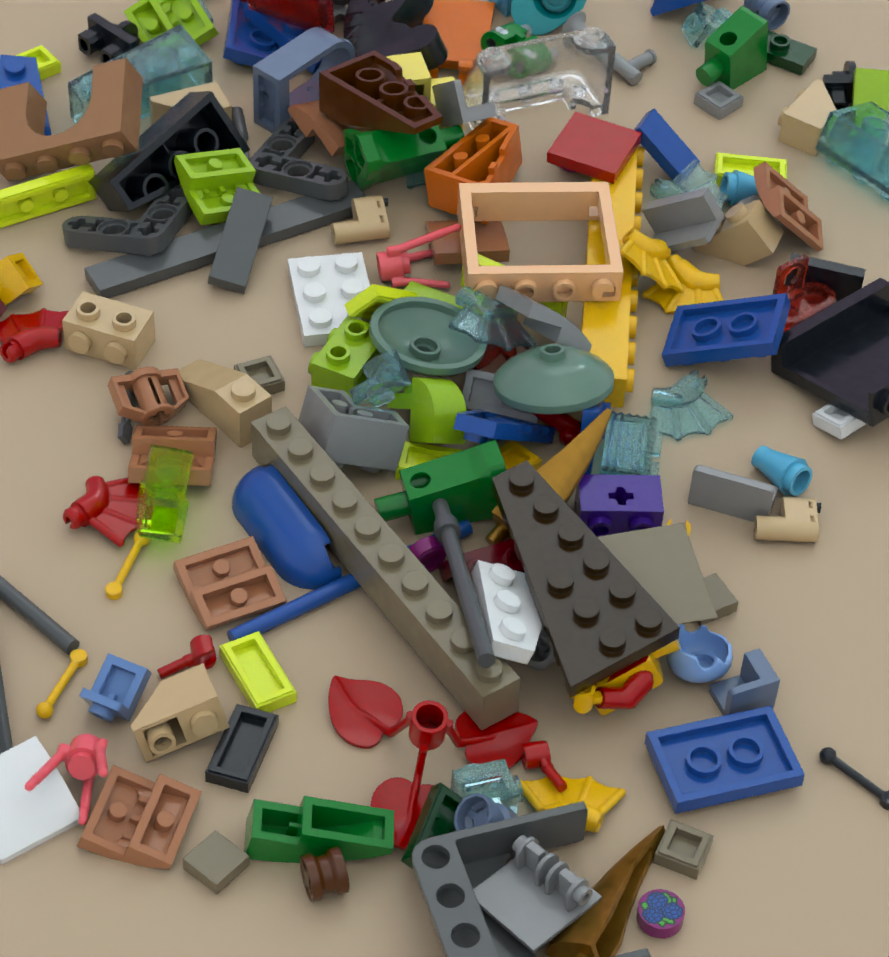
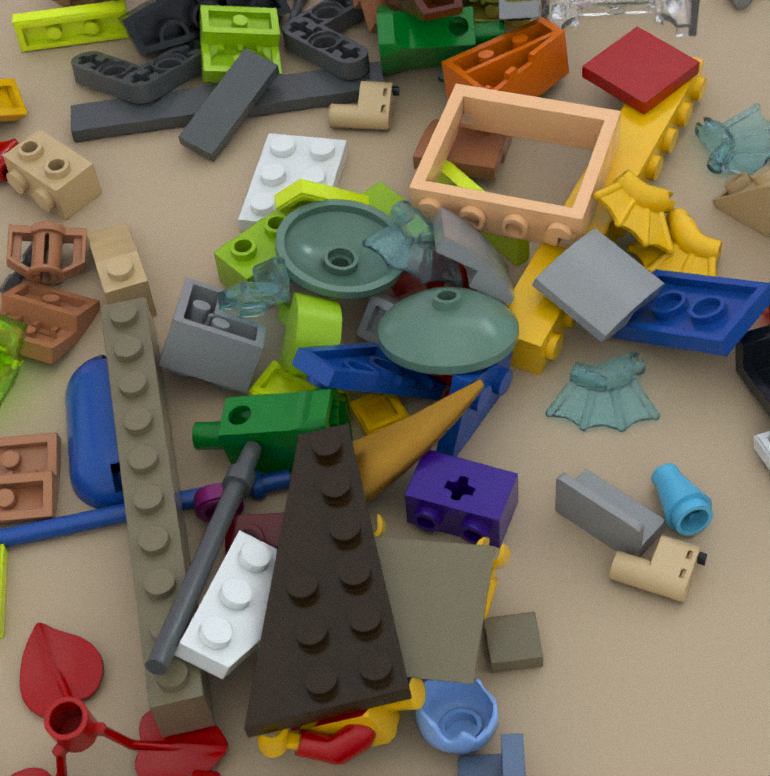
camera: 30 degrees right, 5 degrees up
(264, 373) = (173, 255): dark tan tile -> none
(396, 261) = (372, 159): coral plant -> none
(631, 445) = (510, 430): clear light blue brick -> none
(650, 322) = (598, 284): none -> light grey slope
(664, 144) = (728, 79): blue tile -> none
(684, 218) = (705, 170): light grey panel -> none

